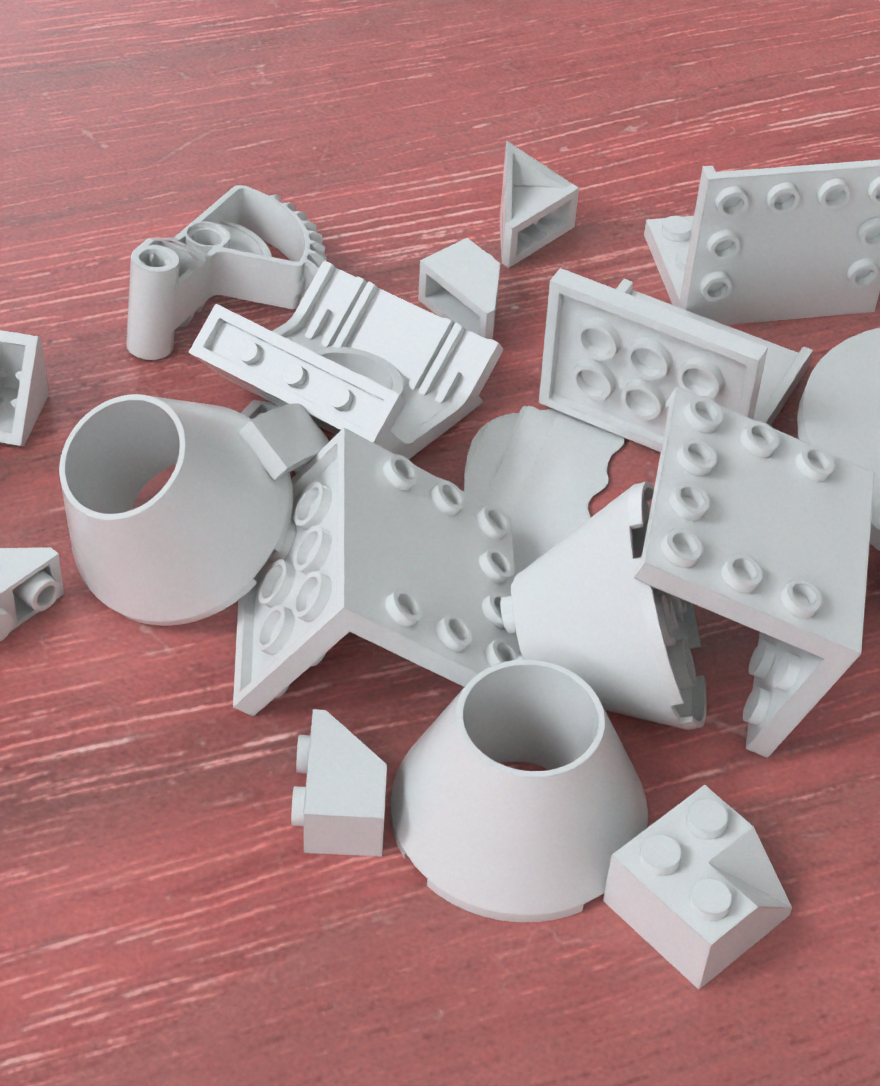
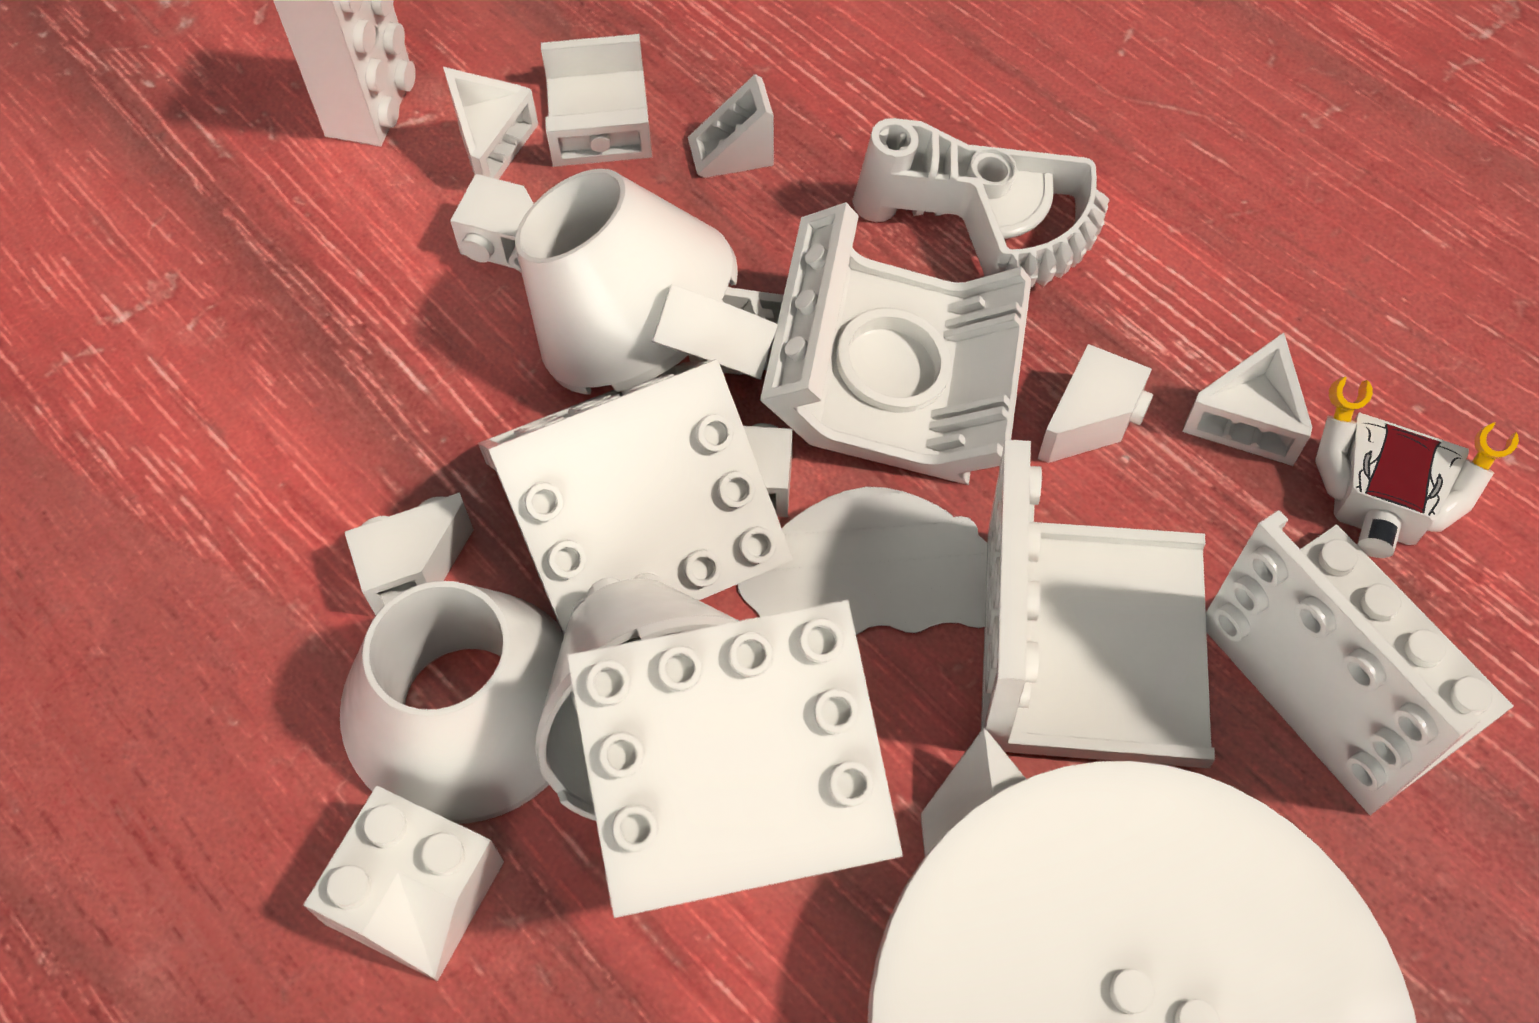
camera: 70 degrees right, 15 degrees up
(628, 172) = (1396, 478): none -> torso

